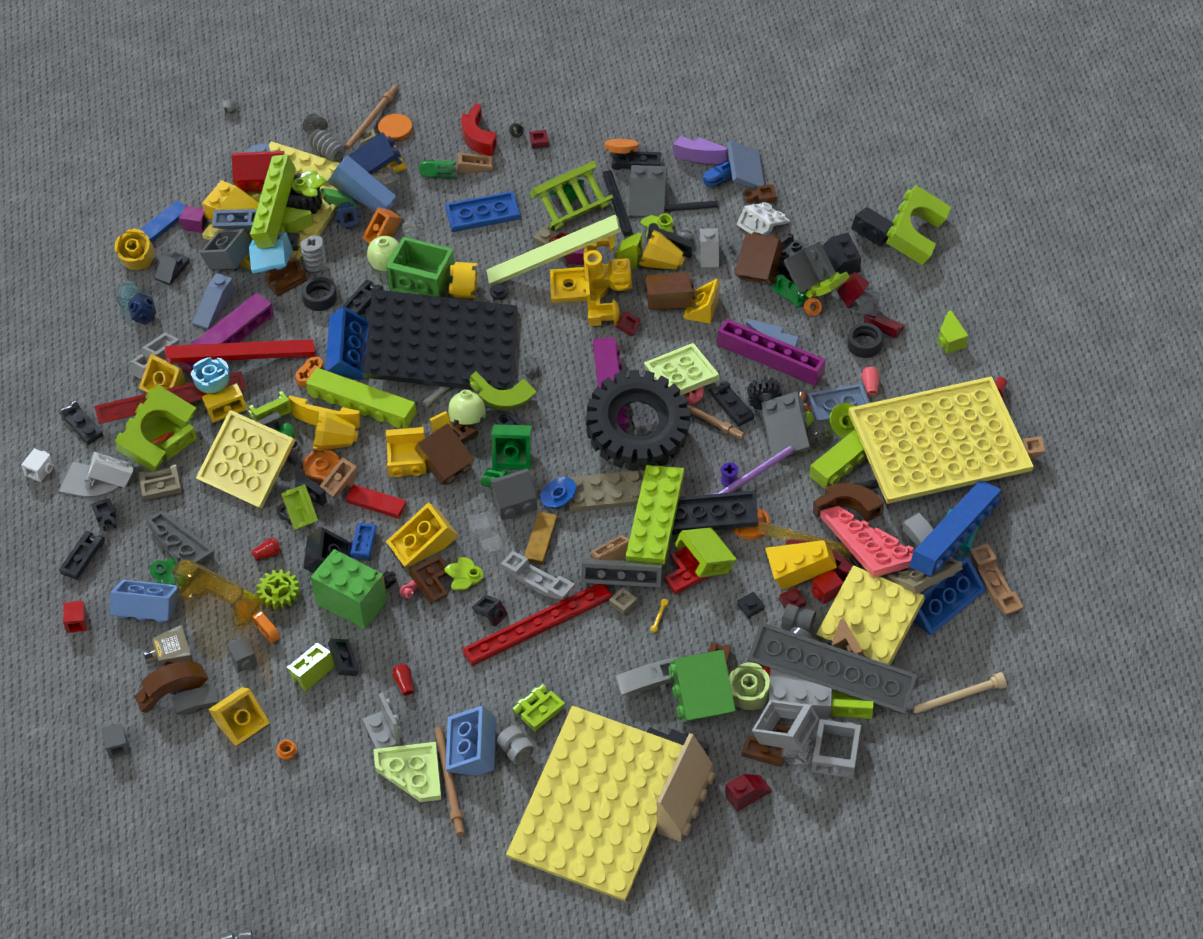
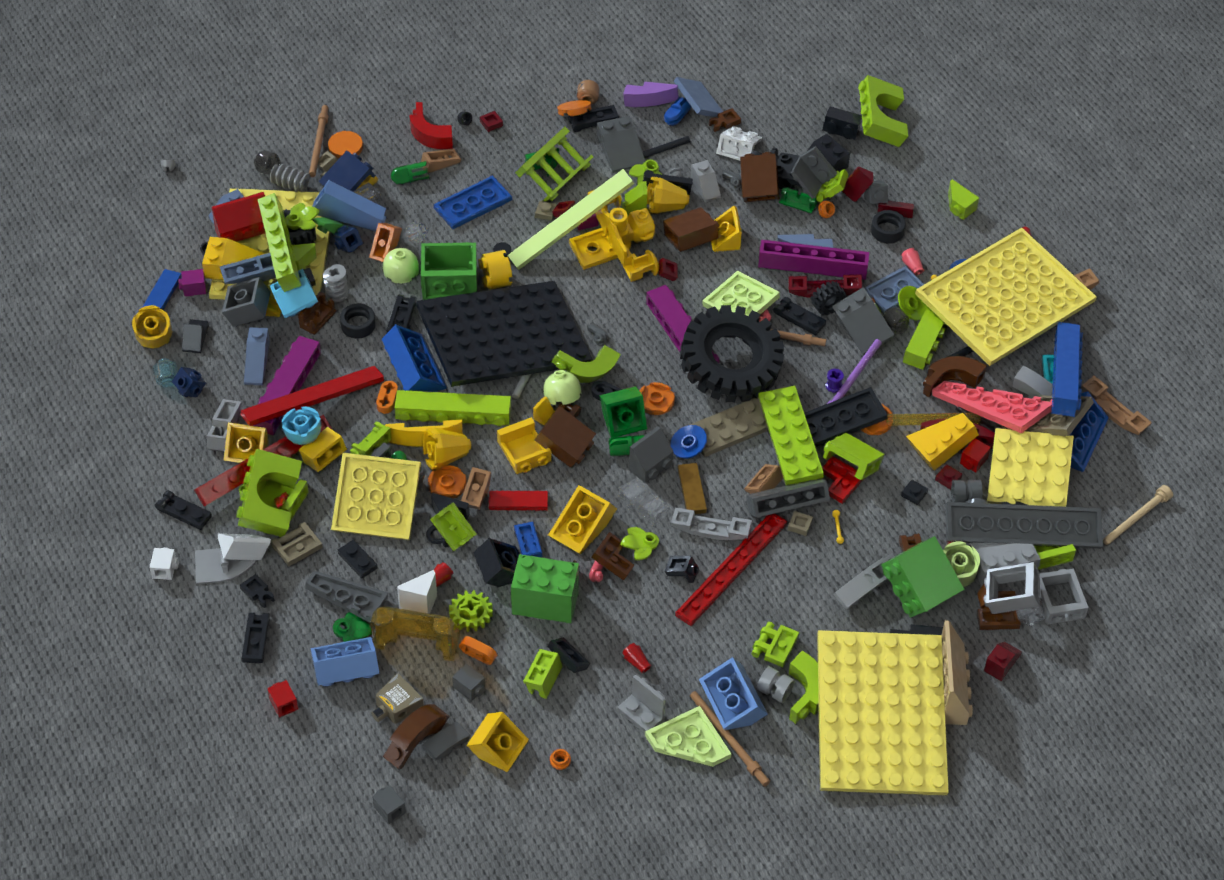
camera: 25 degrees left, 0 degrees up
(206, 511) = (357, 559): none -> black plate
(237, 560) = (418, 593): none -> white slope
(484, 263) = (503, 246): none -> black tile
(498, 291) = (529, 272): black plate -> none
(547, 737) = (805, 670): none -> lime arch
(548, 446) = (657, 398): none -> orange tile
(617, 203) = (586, 151): black axle -> none
(644, 133) = (588, 91): none -> medium nougat head
(747, 373) = (801, 287): none -> dark red slope
(845, 638) = (1023, 493): medium nougat slope -> none

